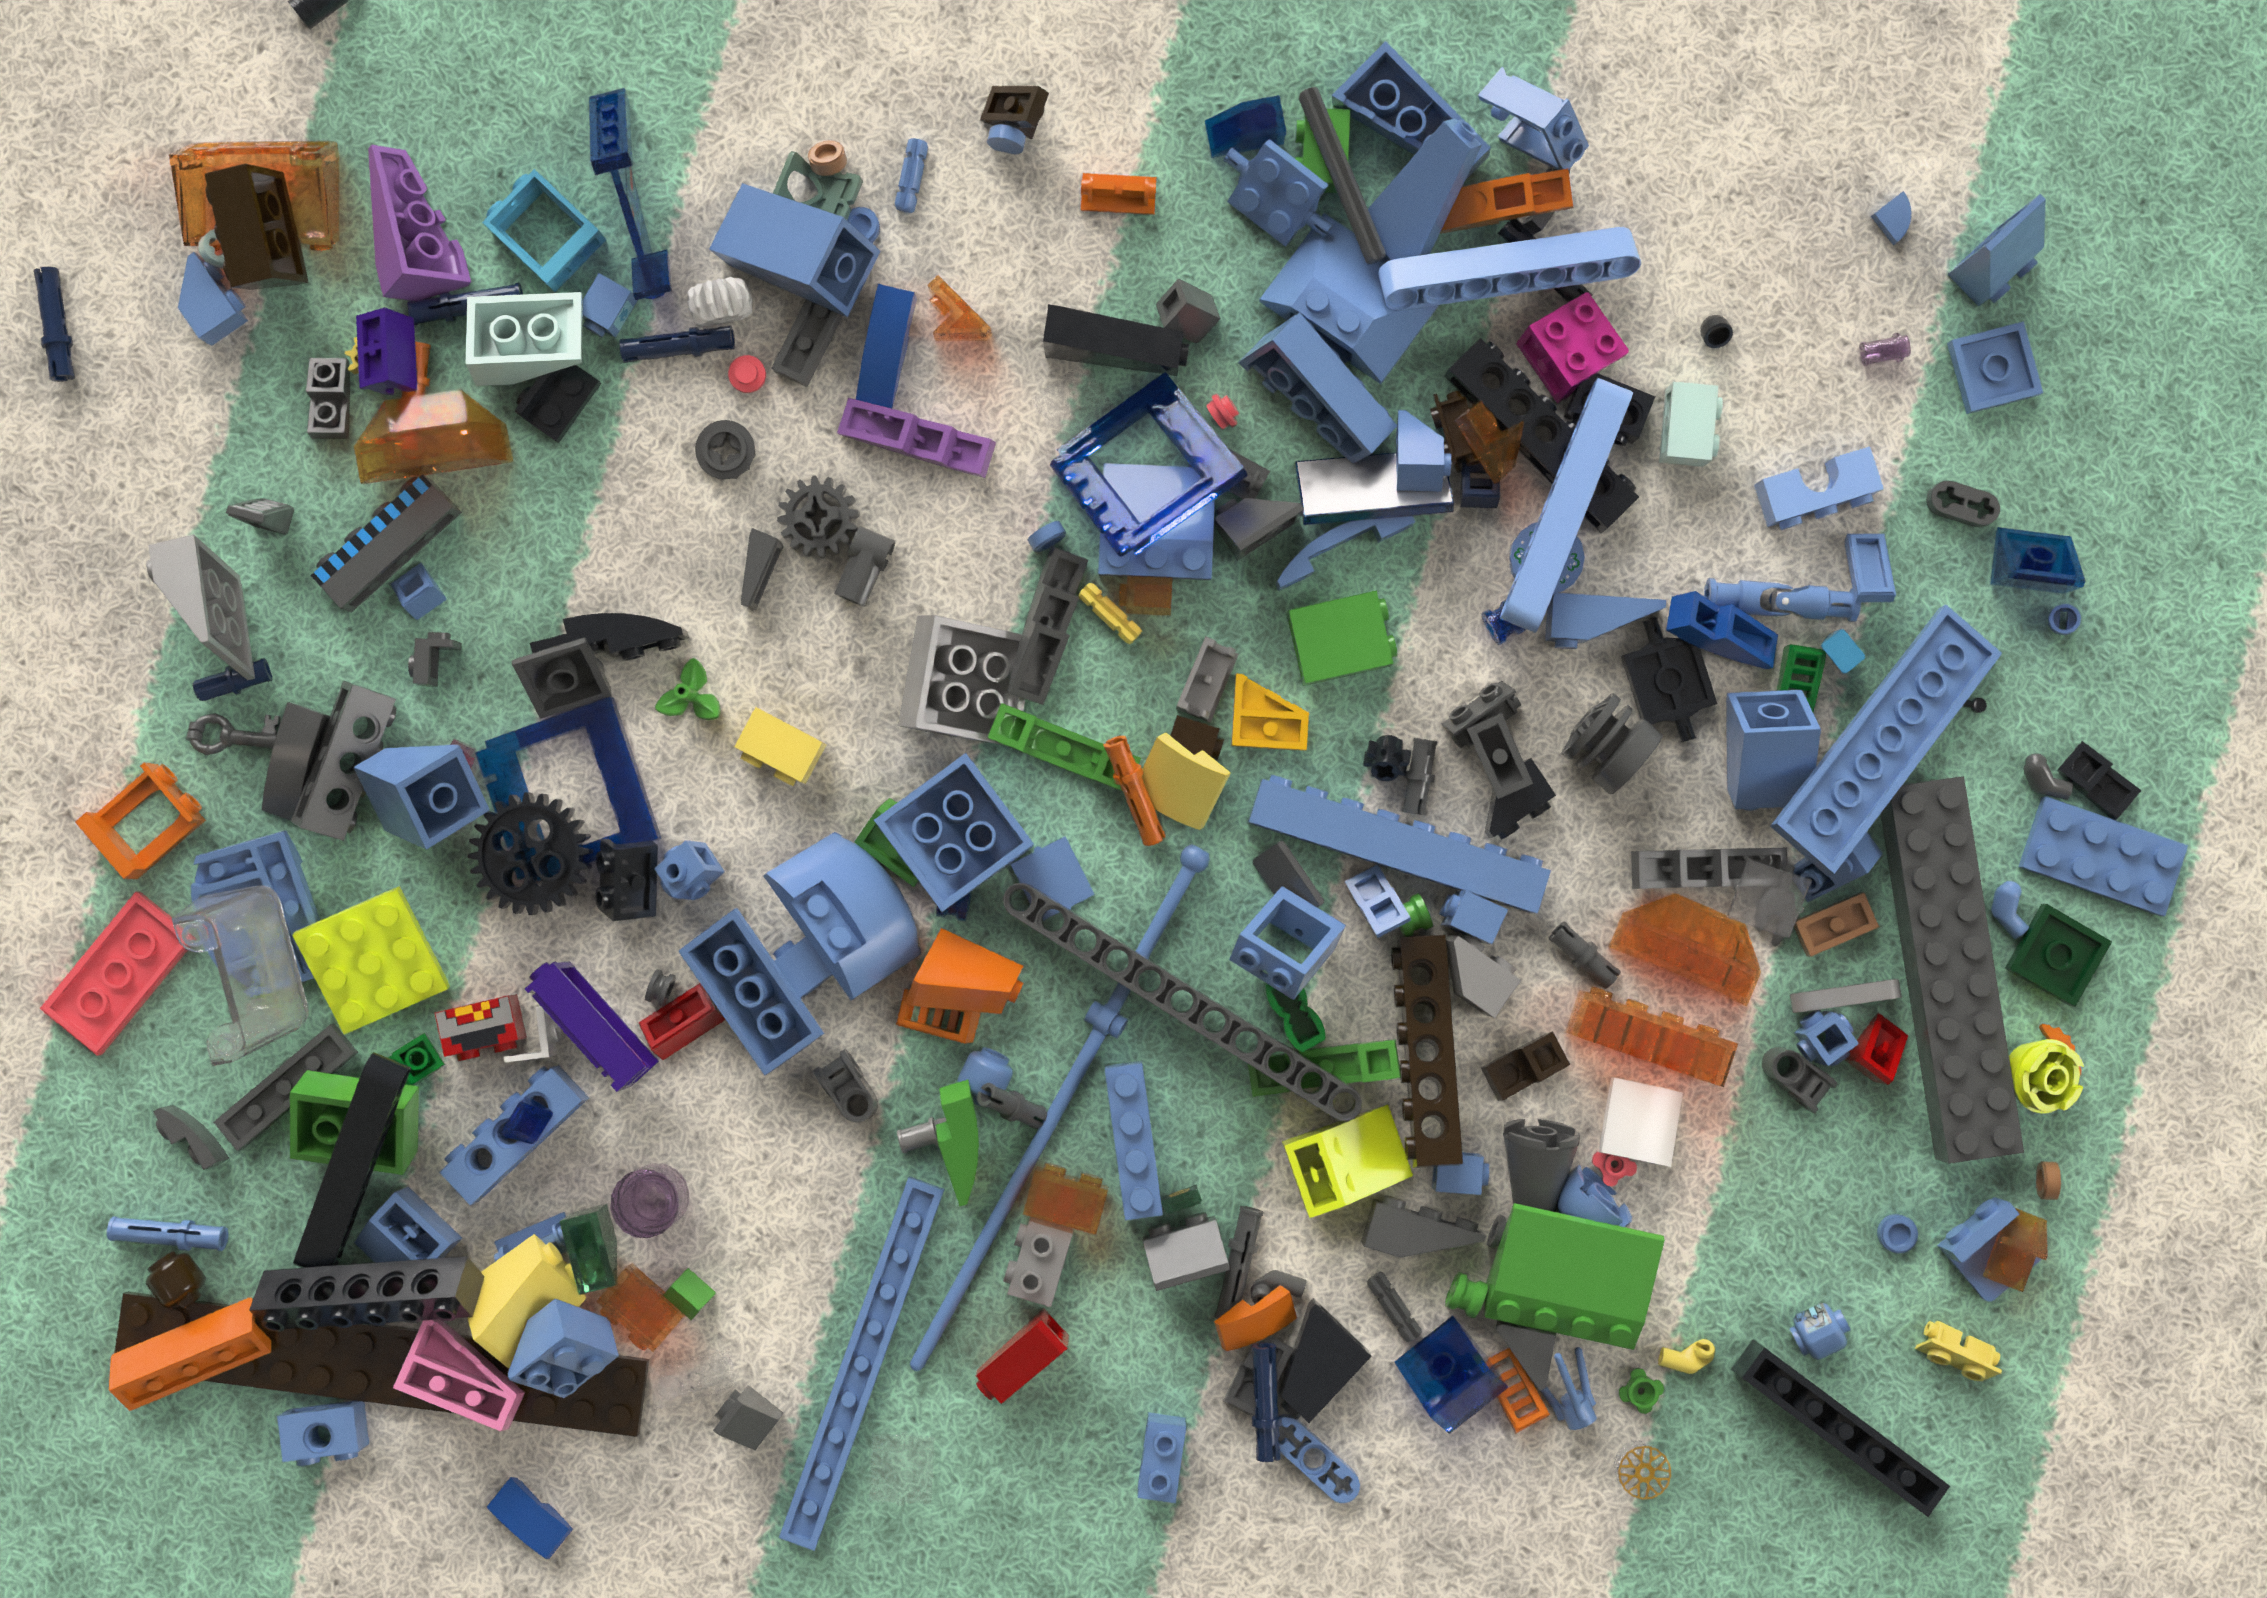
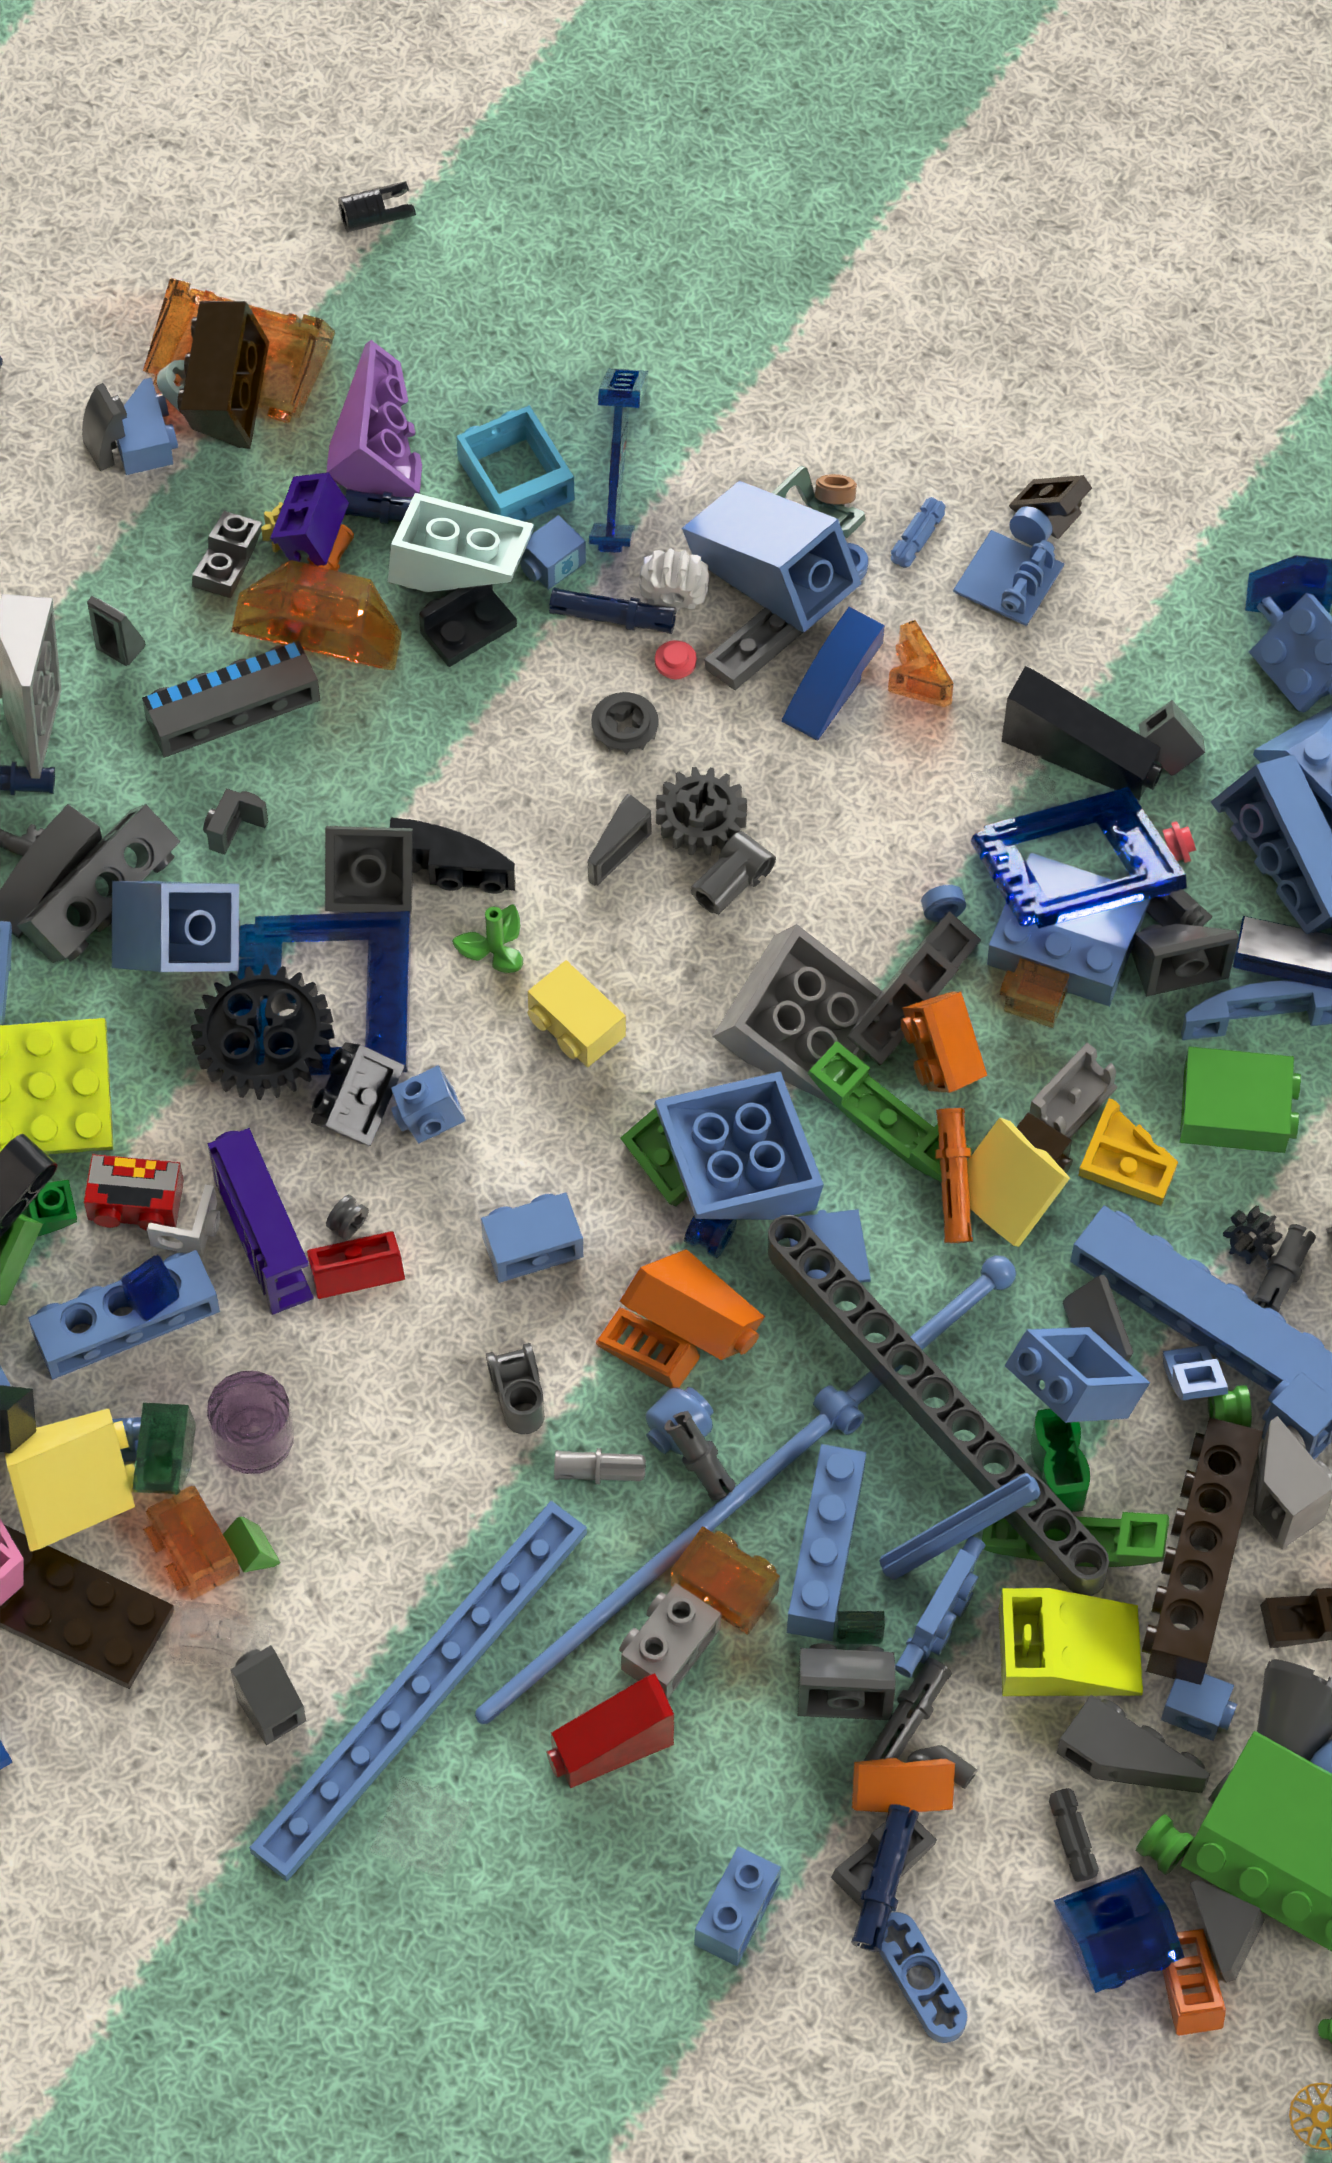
camera: 20 degrees right, 25 degrees down
(170, 314) = (103, 426): none -> dark grey slope
(418, 592) = (244, 758): medium blue slope -> none
(562, 1349) = (90, 1535): medium blue slope -> none
(751, 992) = (454, 1241): medium blue slope -> none
(848, 911) = (589, 1195): medium blue slope -> none
(916, 437) = (831, 769): medium lavender slope -> none
(959, 1138) = (628, 1468): bright green slope -> none
(1002, 194) = (1010, 576): none -> medium blue hinge
(1089, 678) = (943, 1043): none -> orange slope
(1110, 613) = (986, 1001): light yellow axle -> none
(1118, 193) = (1133, 611): orange hinge -> none
(1235, 1102) = (960, 1526): none -> medium blue axle
(1240, 1185) = (946, 1604): none -> medium blue plate
(1320, 1363) = (964, 1863): black slope -> none
(1575, 1406) = (1261, 2021): medium blue plant -> none

